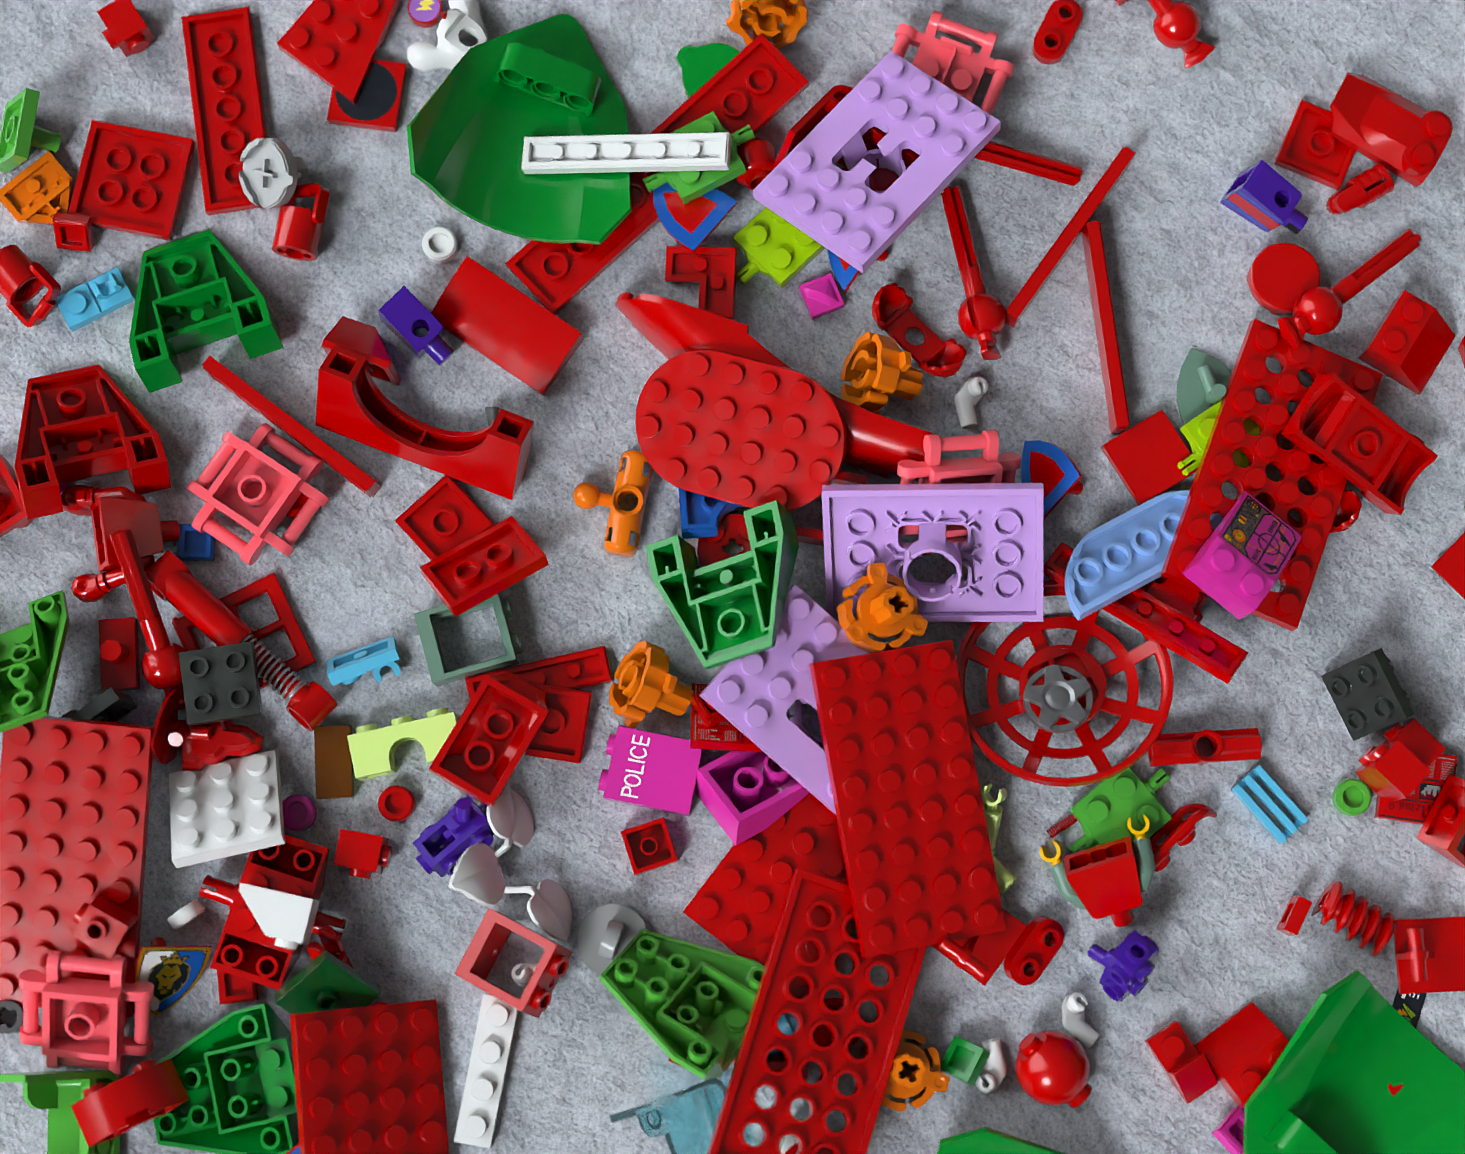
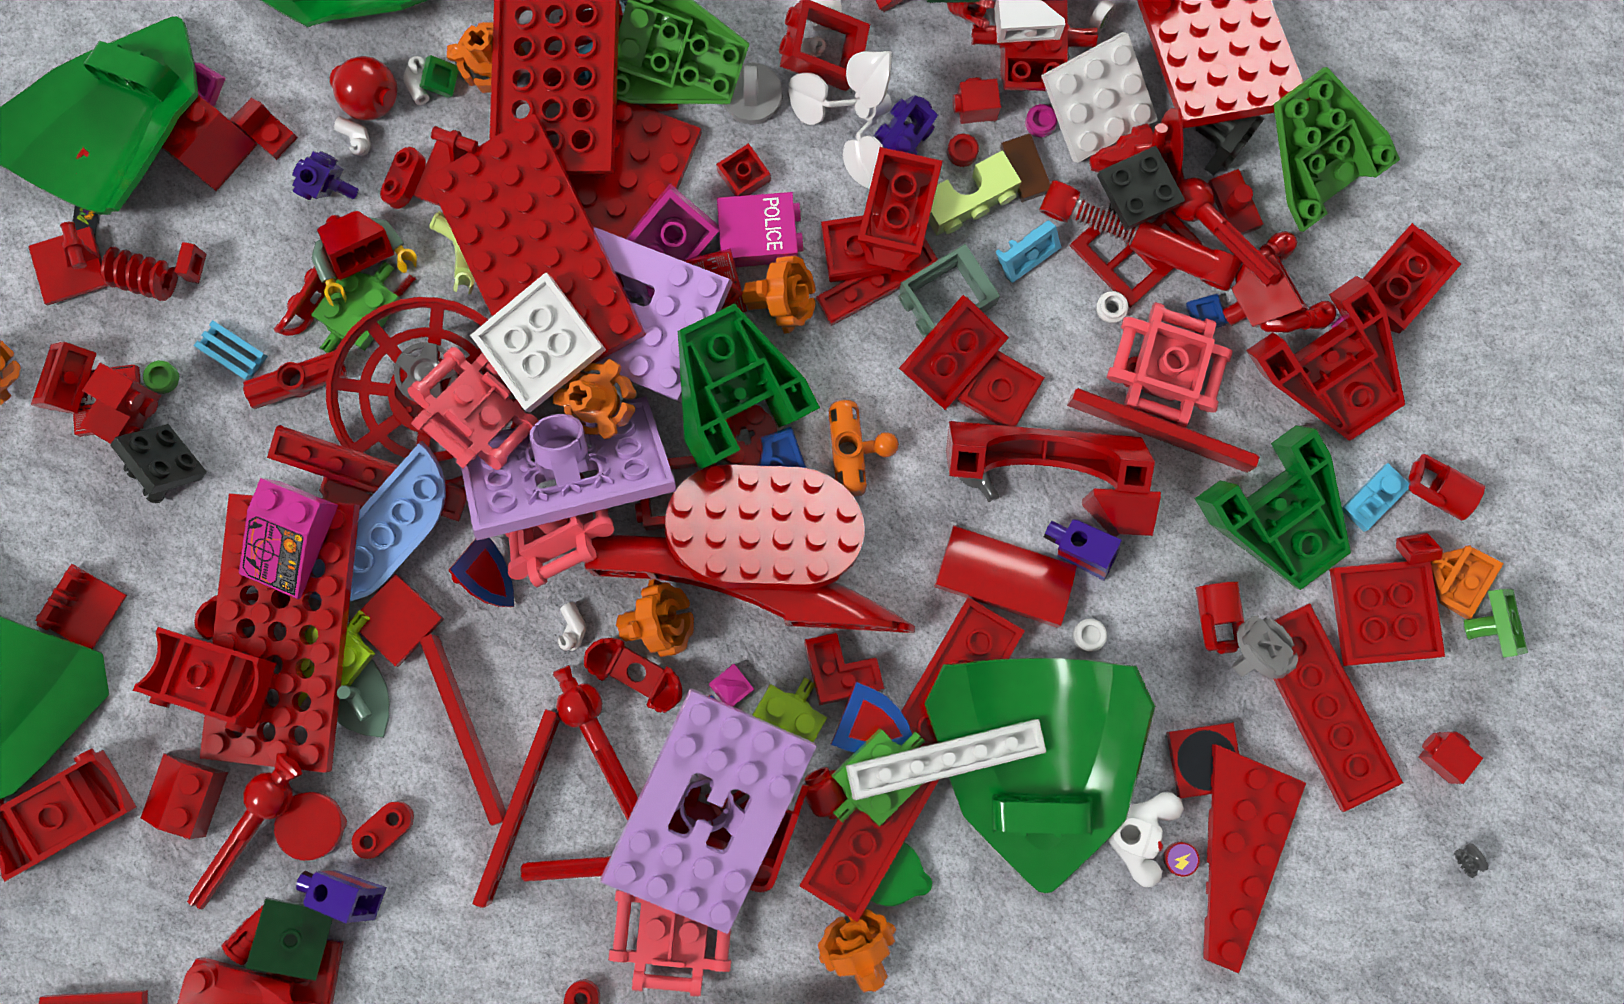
camera: 160 degrees right, 0 degrees up
(287, 569) = (1117, 299): none -> white plate
(927, 683) = (537, 342): none -> white plate
(1015, 637) = (470, 411): none -> coral brick
(1212, 254) = (381, 830): none -> red plate
(1325, 170) = (289, 939): none -> dark green plate

